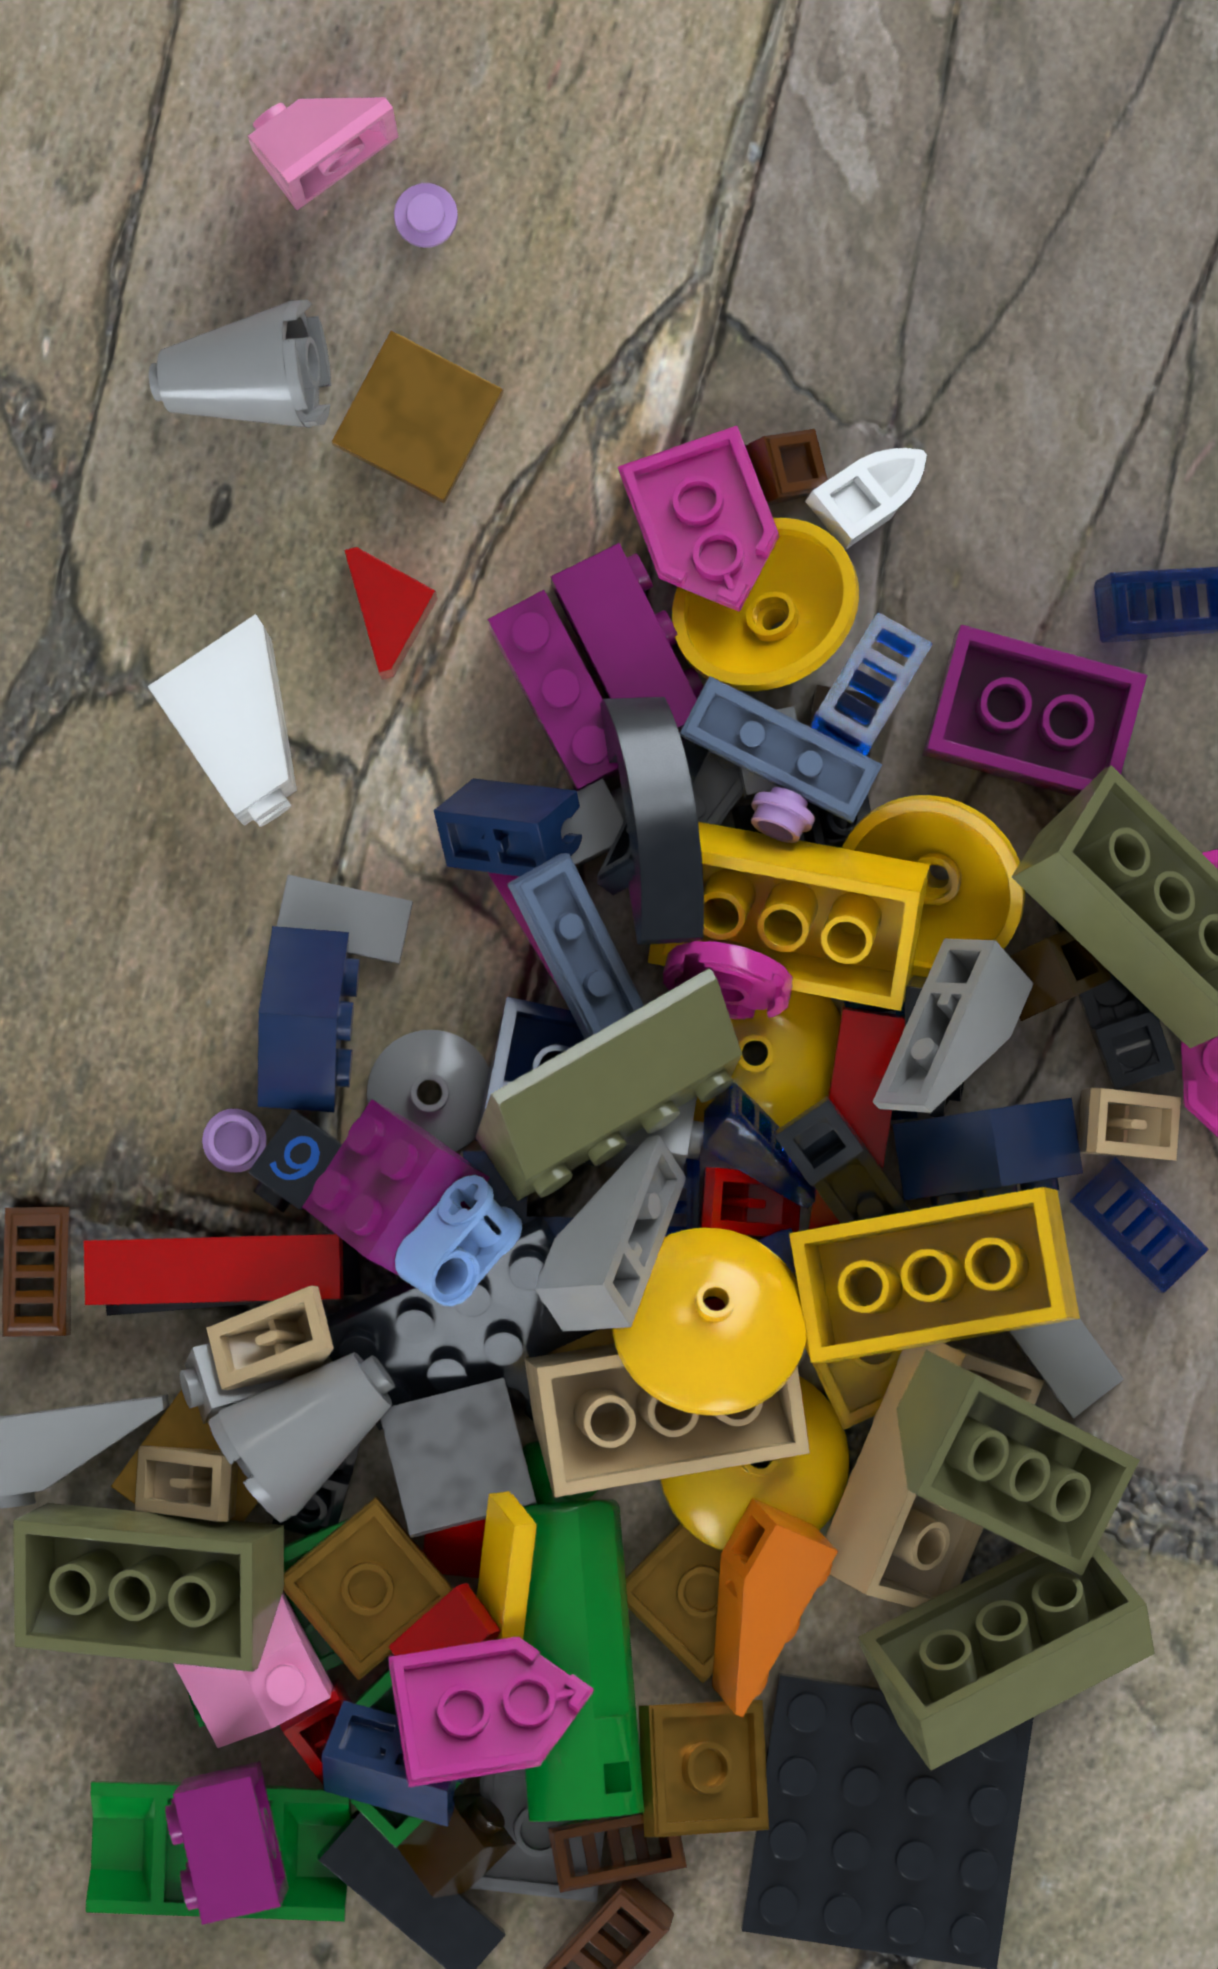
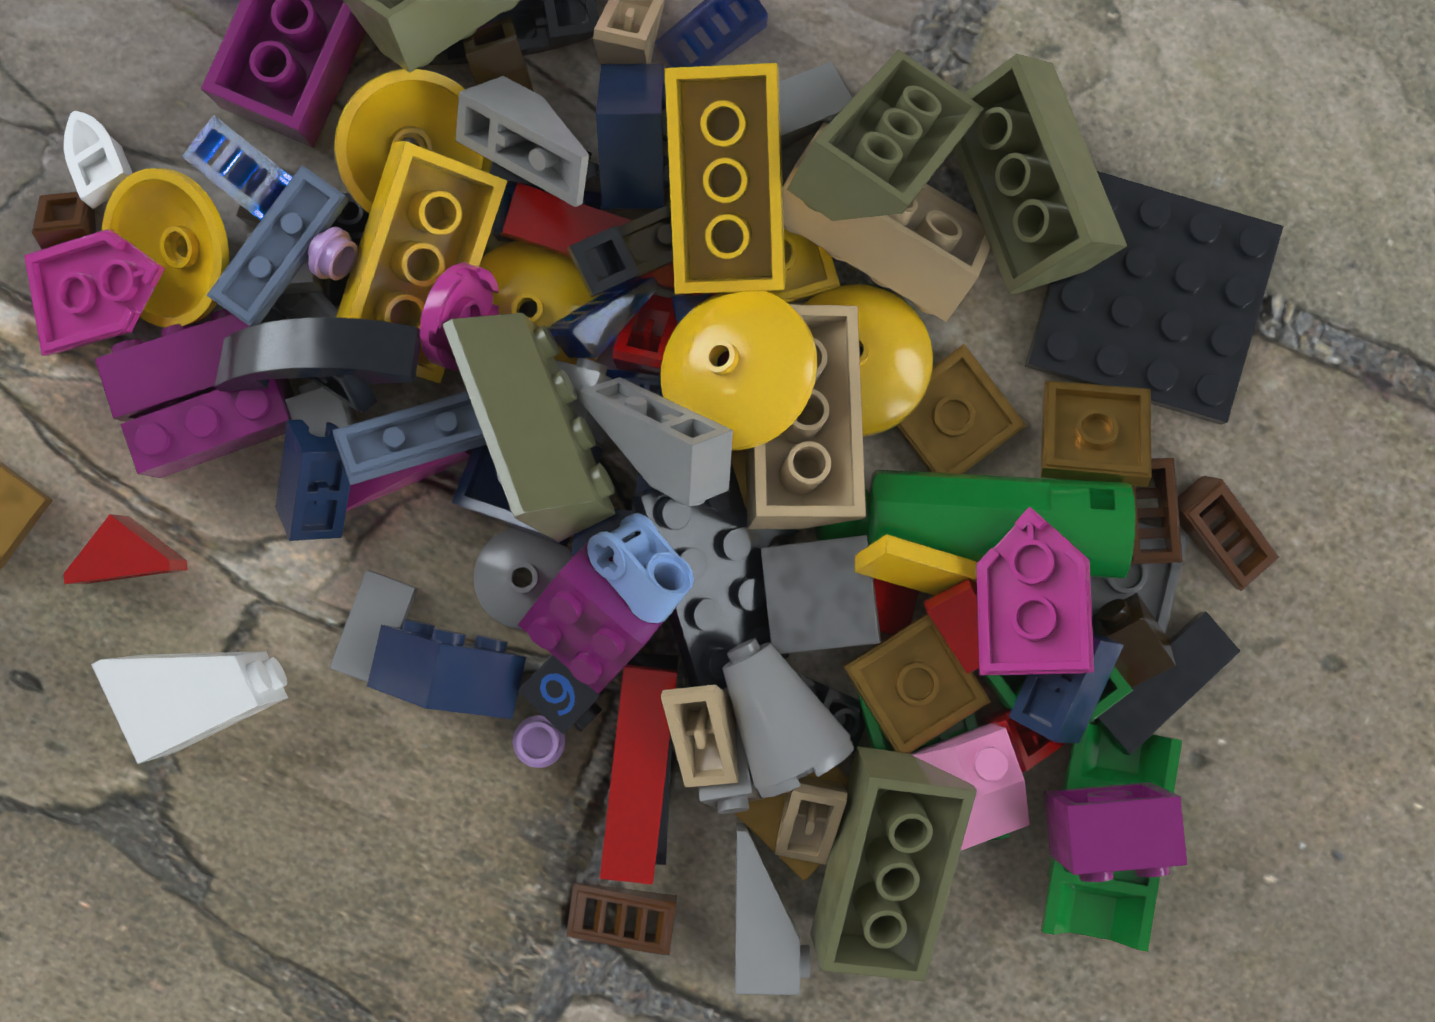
camera: 80 degrees left, 0 degrees up
(763, 1589) = (964, 363): orange slope -> none

